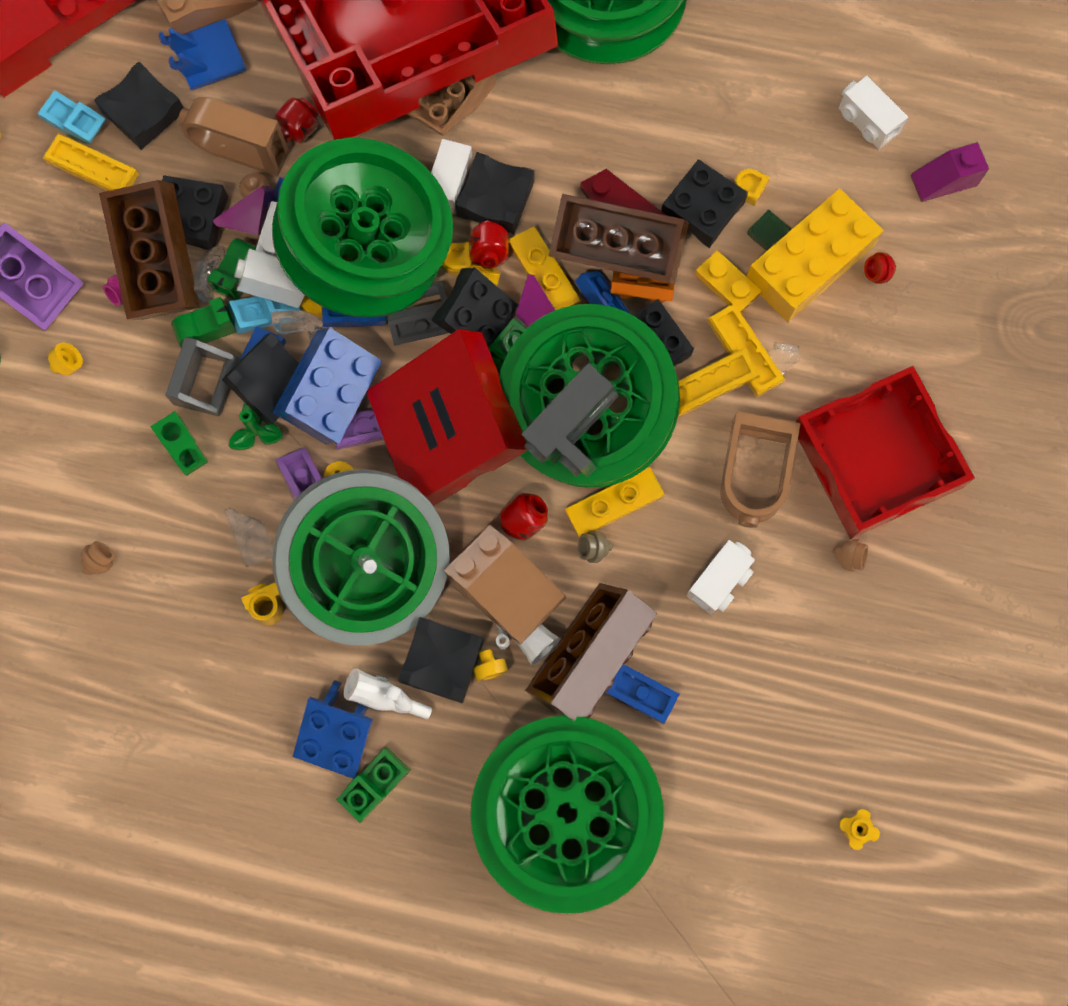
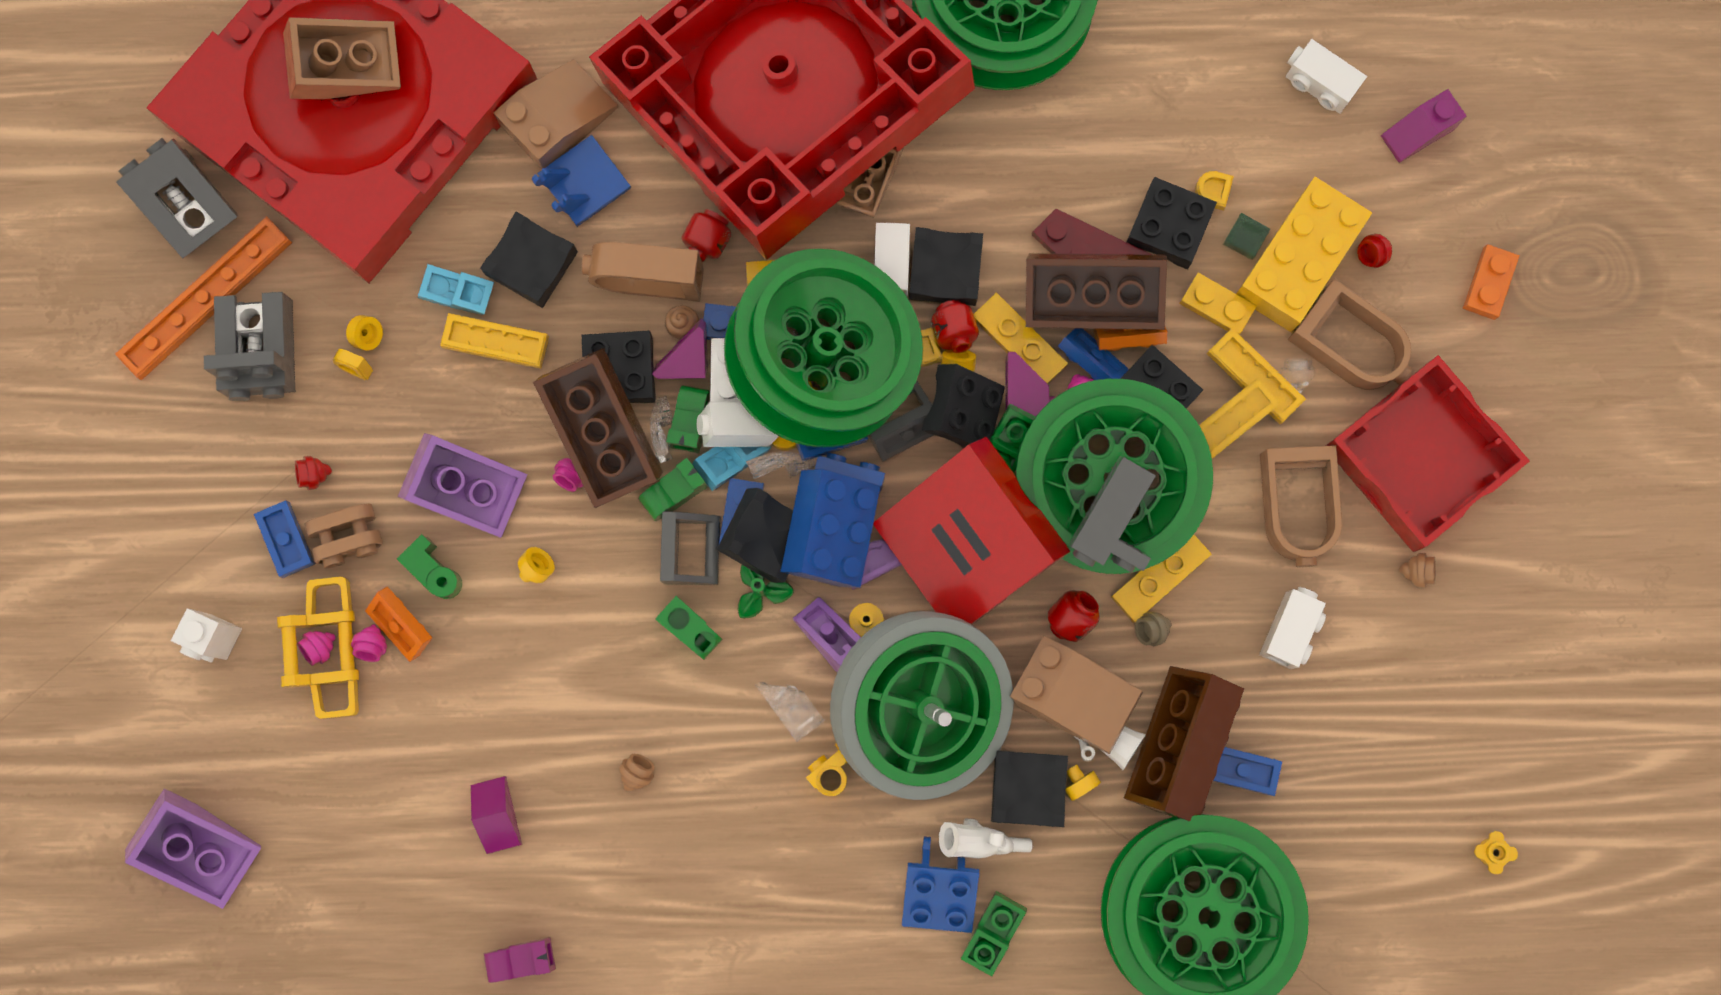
camera: 15 degrees left, 5 degrees up
(375, 346) = (865, 471): none -> blue plate
(816, 307) = (1339, 294): none -> medium nougat window
(979, 320) = (1491, 282): none -> orange plate

